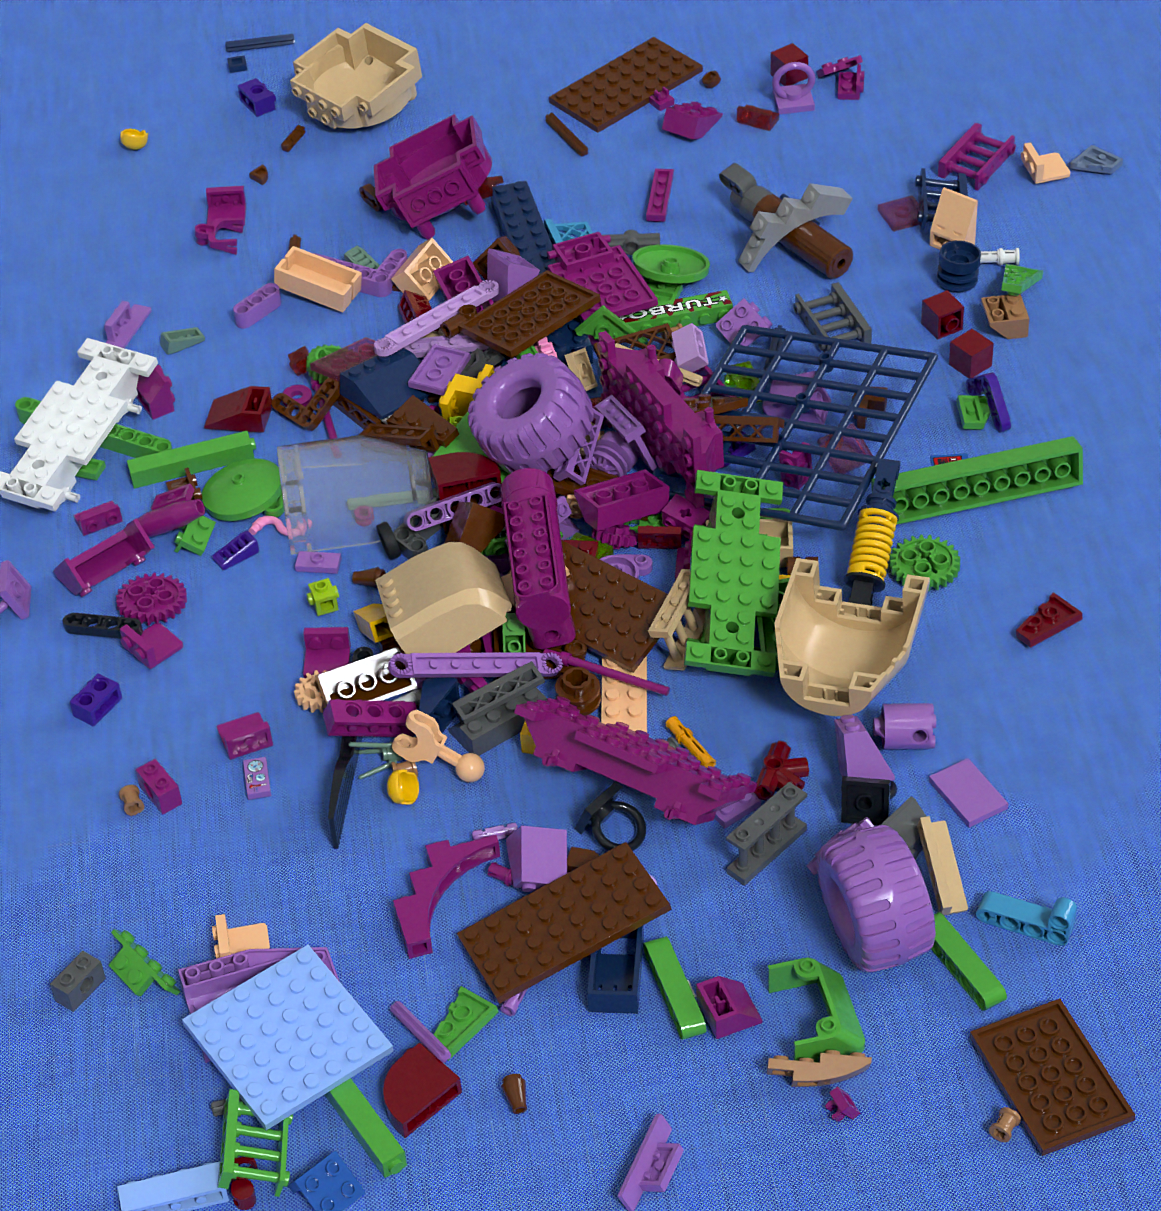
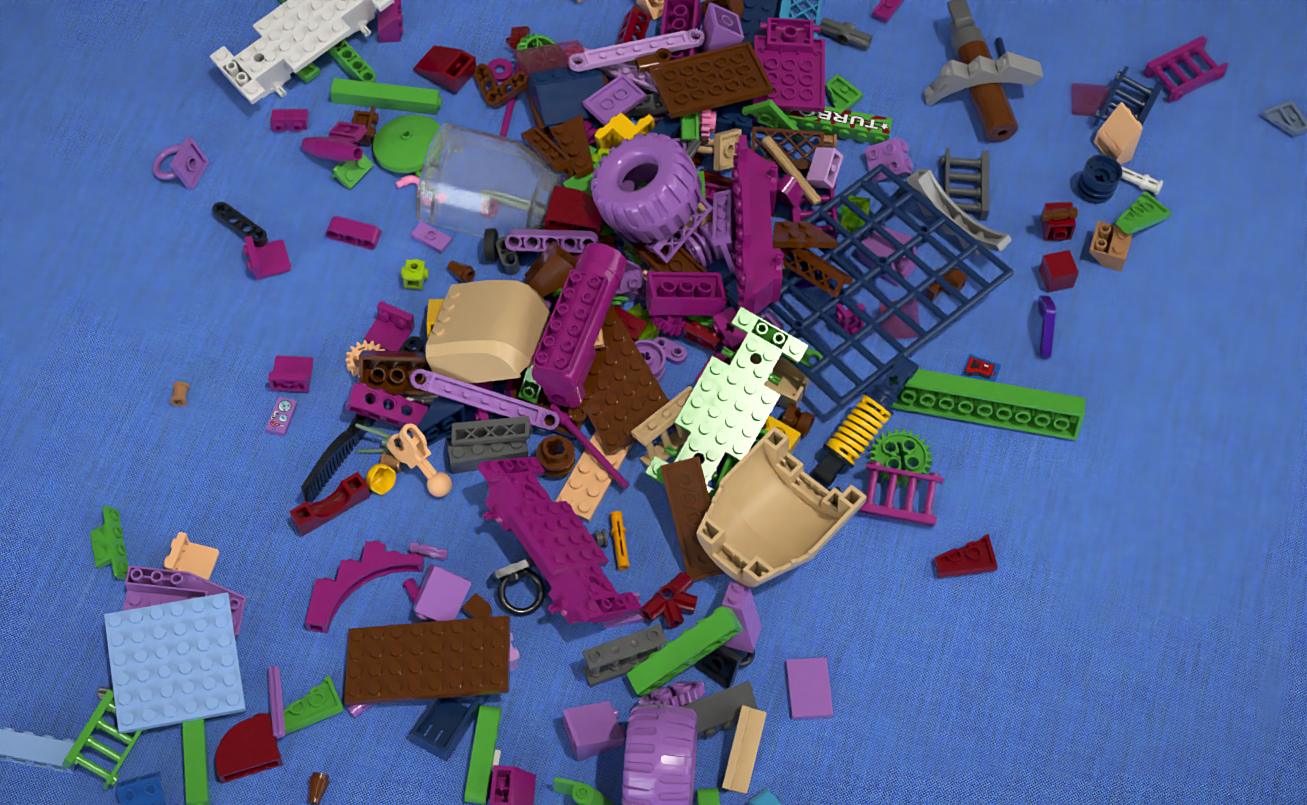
camera: 20 degrees right, 15 degrees up
(77, 981) = (60, 536): dark grey brick -> none
(95, 699) = (201, 293): dark purple brick -> none
(104, 559) = (268, 164): magenta windscreen -> none
(151, 598) = (288, 216): magenta gear -> none
(158, 786) = (204, 392): magenta brick -> none
(232, 587) = (353, 232): none -> magenta beam
(242, 1188) = (81, 775): dark red leg -> none
(245, 542) = (375, 204): dark purple slope -> none
(378, 813) = (347, 495): none -> dark red arch
(671, 263) = (862, 71): bright green dish -> none
(758, 683) = (688, 504): none -> reddish brown plate
(774, 916) = (593, 729): none -> medium lavender slope
(800, 321) = (926, 185): none -> light grey arch
(828, 798) = (684, 651): none -> bright green brick
(906, 726) = (790, 607): medium lavender cylinder -> none
(943, 302) = (1061, 213): none -> reddish brown axle
(963, 605) = (907, 513): none -> magenta fence
(973, 411) = (1027, 328): bright green wing -> none
(1043, 167) = (1238, 104): light nougat bracket -> none

